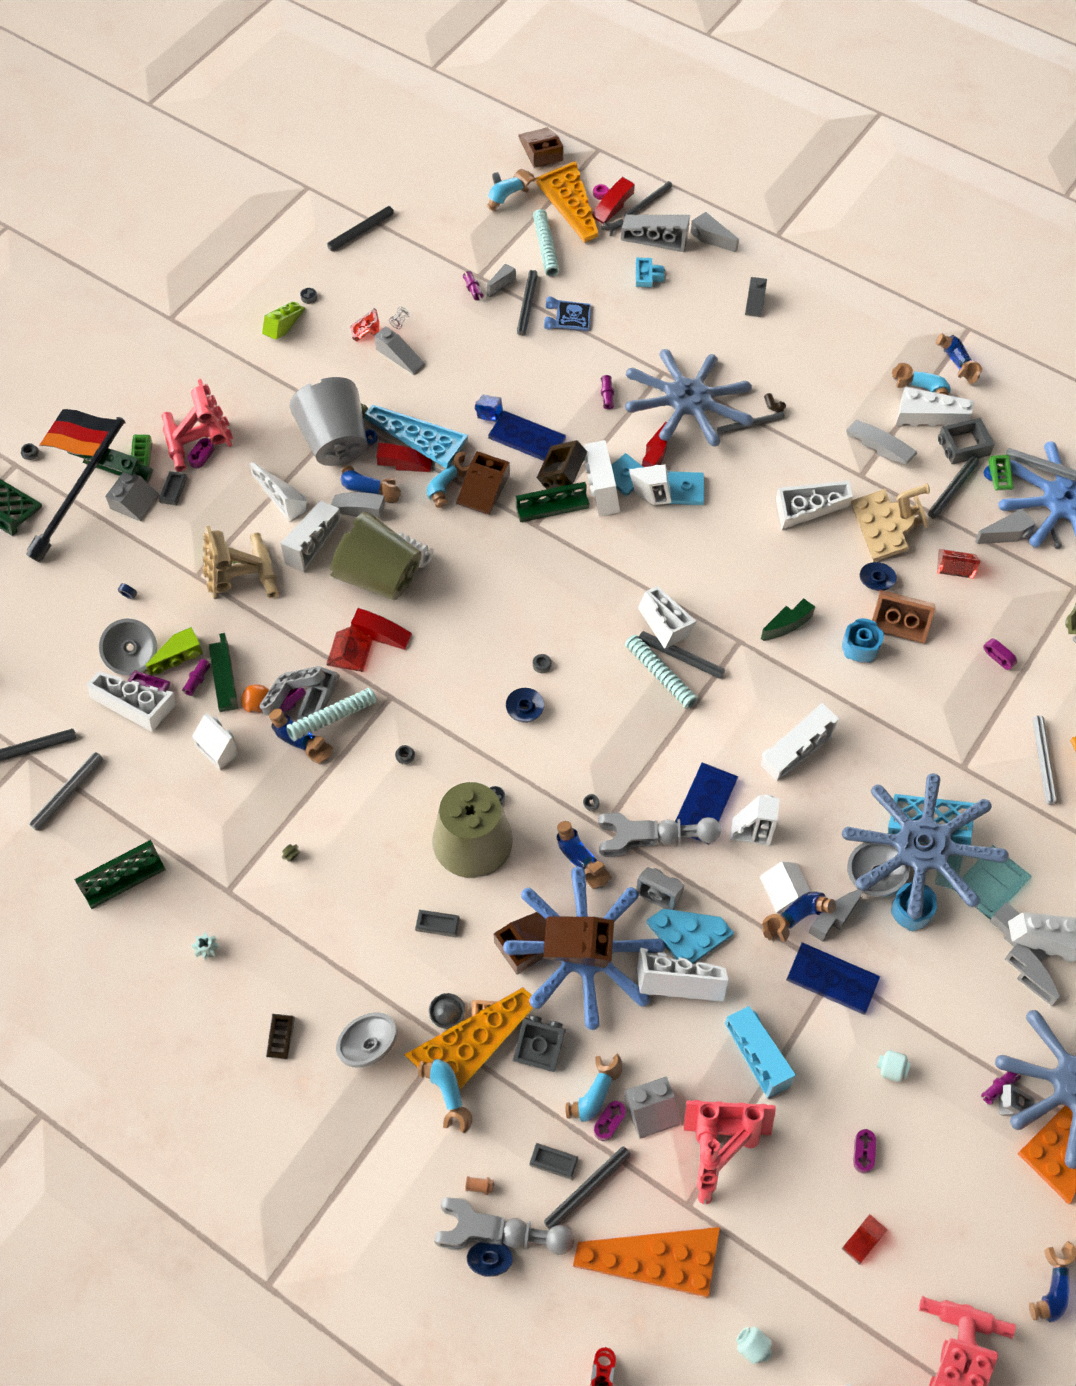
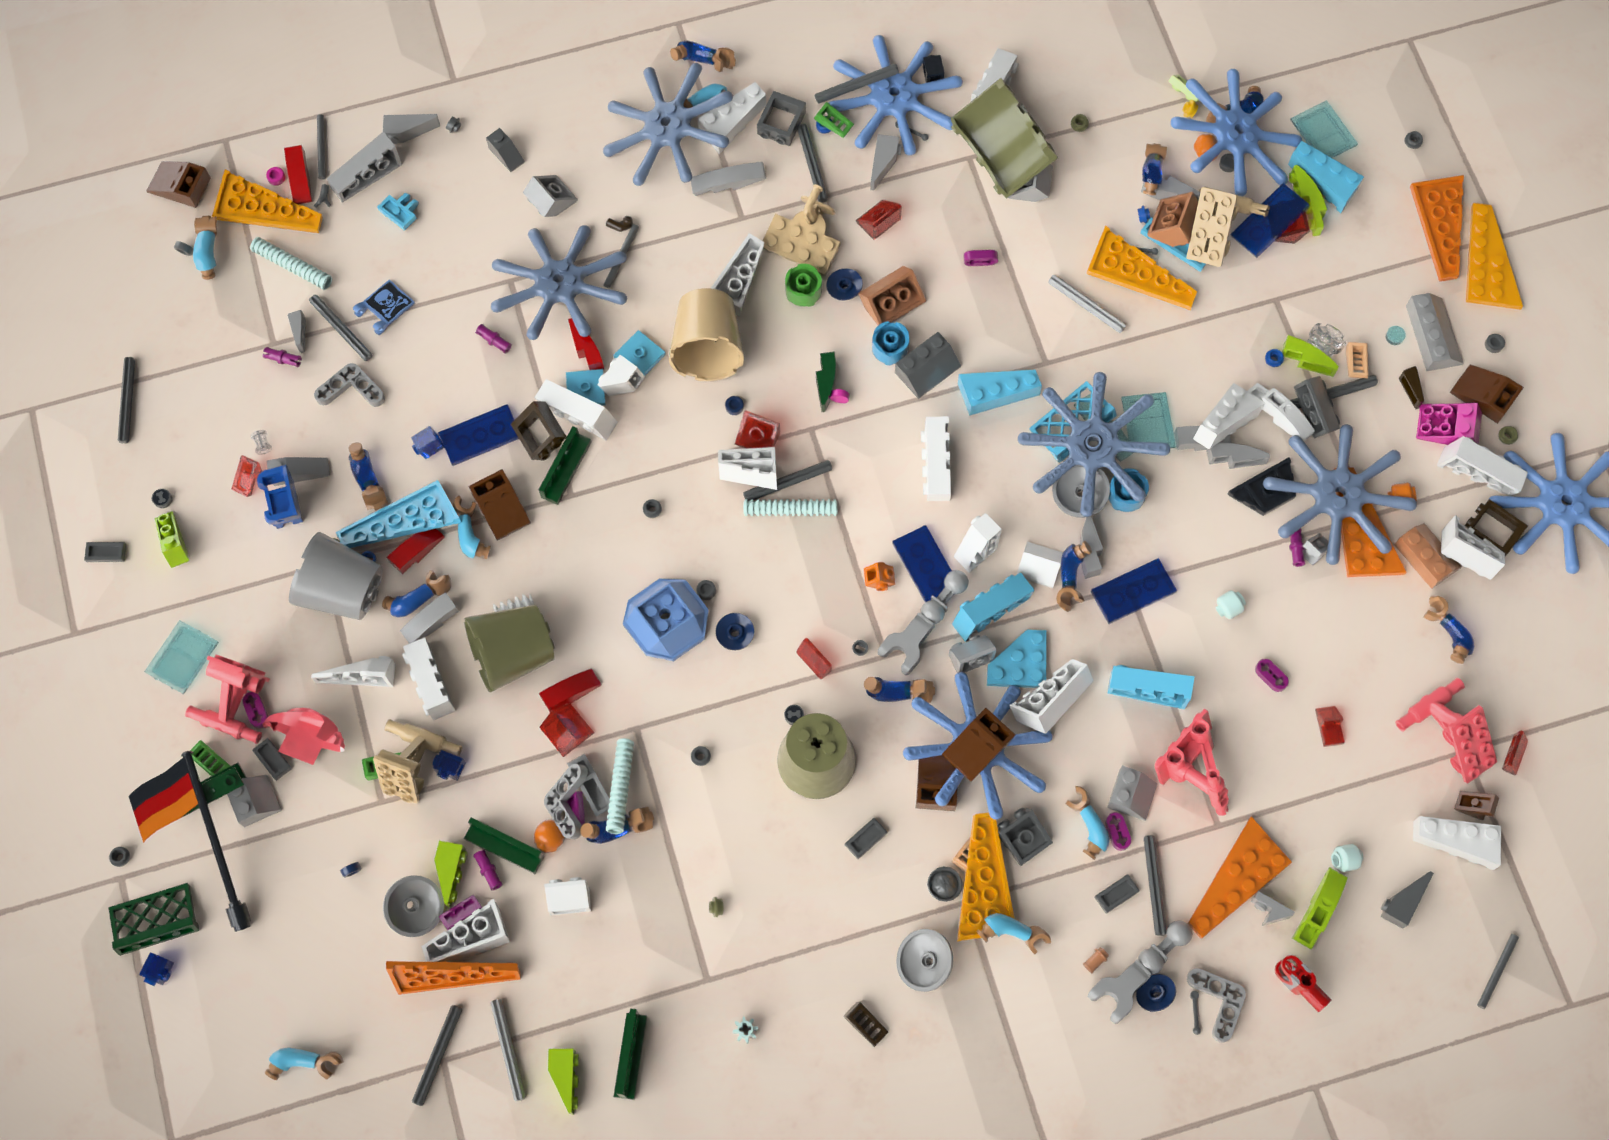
camera: 50 degrees left, 10 degrees up
(72, 841) = (562, 1071): none -> lime slope
(81, 695) = (430, 976): none -> orange wing
(209, 493) = (305, 733): none -> coral animal
(216, 377) = (181, 657): none -> clear light blue piece
(242, 293) = (105, 552): none -> dark grey tile
(255, 595) = (448, 765): none -> clear blue brick
(364, 356) = (281, 502): none -> blue piece
(431, 390) = (365, 477): none -> piece
(493, 667) = (670, 636): none -> medium blue piece
(494, 336) = (353, 380): none -> light grey beam
(516, 1297) = (1194, 995): none -> dark grey hinge
(532, 1332) = (1228, 1001): none -> light grey beam
(553, 777) = (814, 659): none -> clear red slope
(573, 577) = (652, 503): none -> dark grey plate
(648, 1315) = (1276, 911): none -> light grey slope
(662, 772) = (879, 576): none -> orange brick
(686, 1353) = (1321, 908): none -> lime slope
(699, 604) = (757, 431): none -> clear red slope
(707, 576) = (734, 405): none -> dark blue tile
(716, 873) = (992, 605): none -> medium azure wedge
(737, 510) = (706, 336): none -> tan cone
(743, 256) = (453, 124): none -> dark grey plate
(750, 346) = (549, 195): none -> light grey slope
(784, 639) = (839, 396): none -> dark pink tile
(847, 549) = (803, 285): none -> bright green brick
(871, 680) = (927, 365): none -> dark grey slope
(880, 372) = (667, 124): none -> sand blue animal
(902, 744) = (997, 389): none -> medium azure wedge
(1013, 1023) = (1260, 499): none -> black wing

